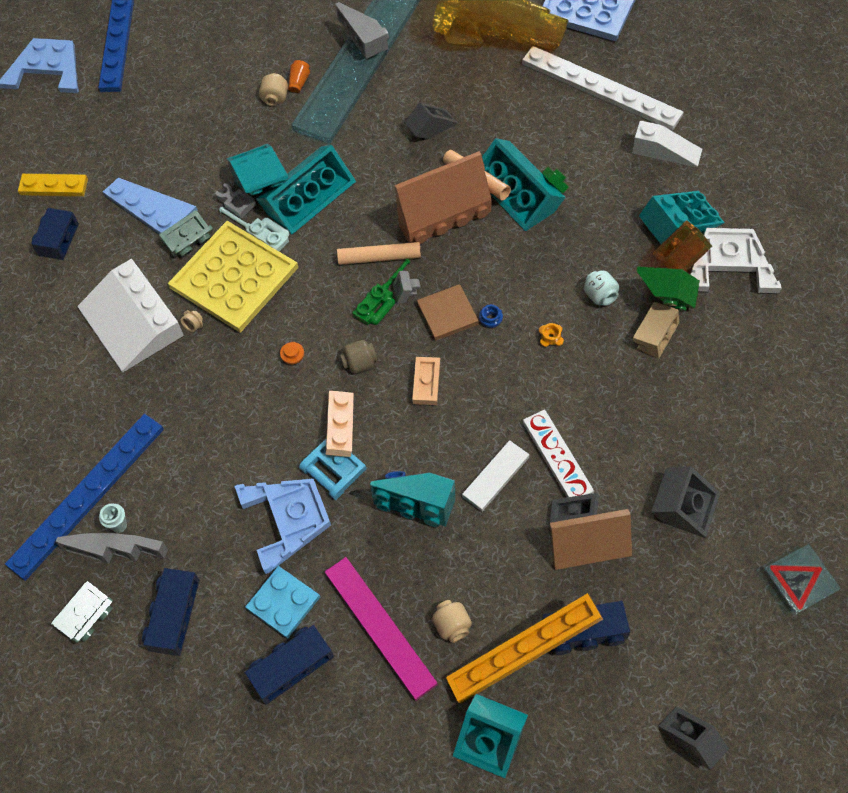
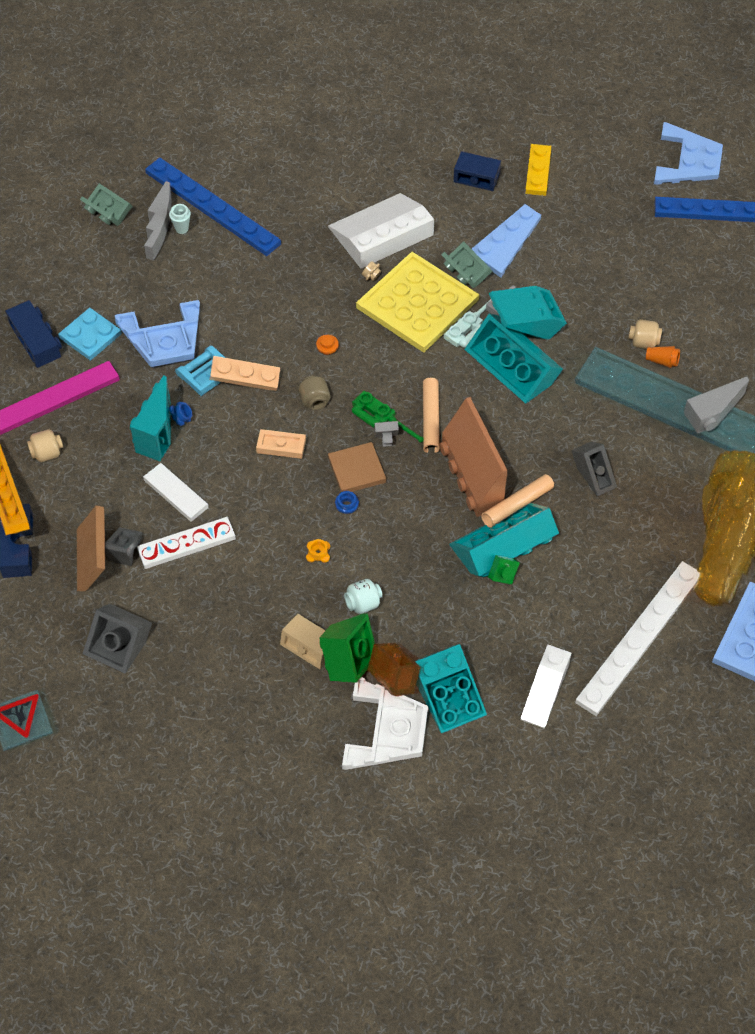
camera: 90 degrees right, 5 degrees down
(171, 612) = (94, 259): dark blue brick -> none

